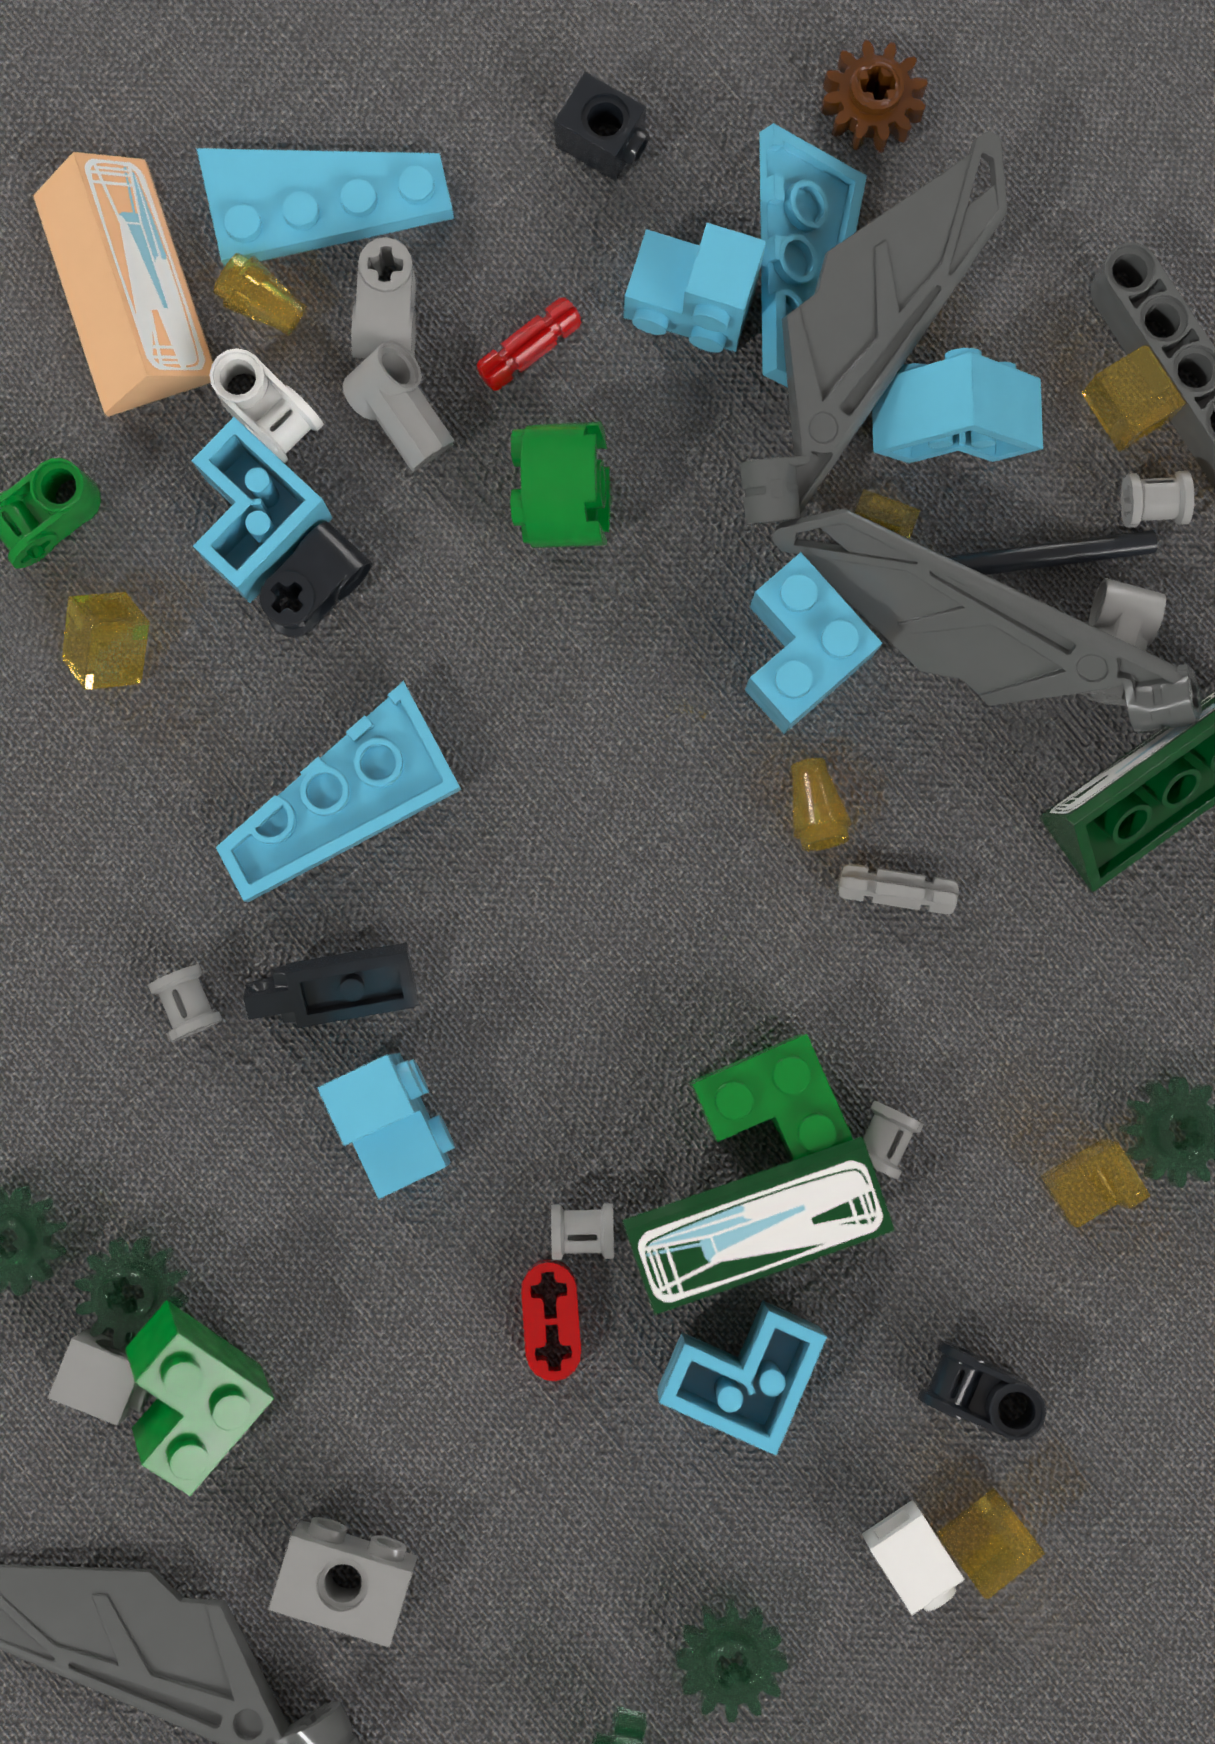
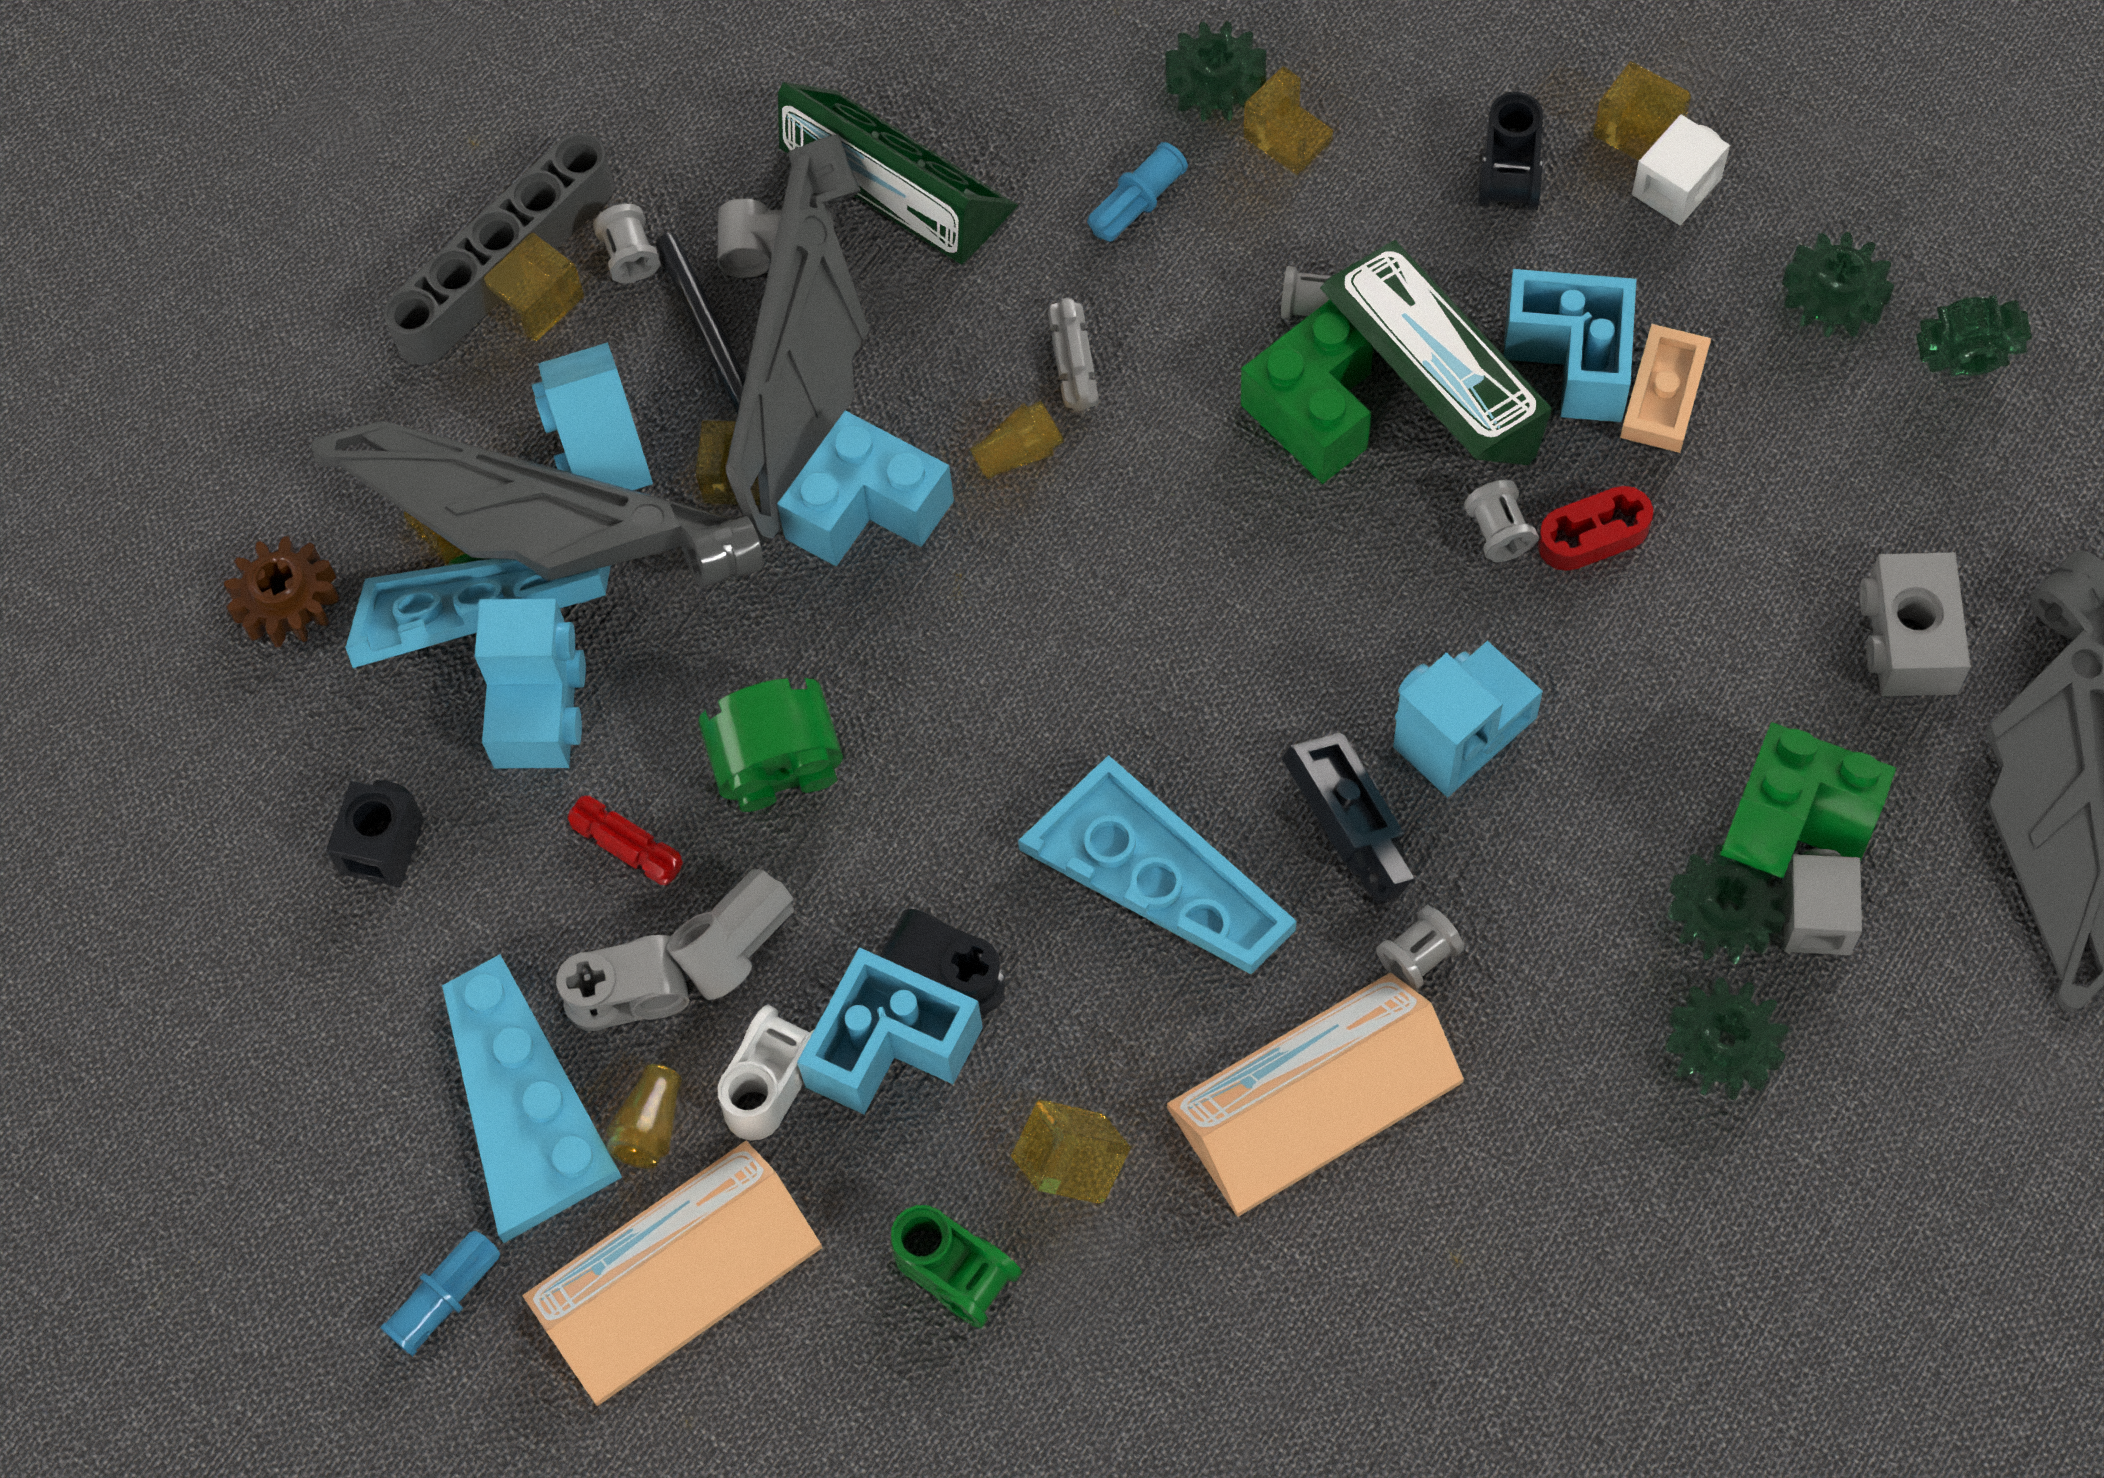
camera: 100 degrees left, 20 degrees down
(96, 866) = (1317, 1091): none -> light nougat slope
(164, 91) = (441, 1292): none -> dark azure axle
(674, 1445) = (1665, 388): none -> light nougat plate
(1061, 1008) = (1137, 192): none -> dark azure axle

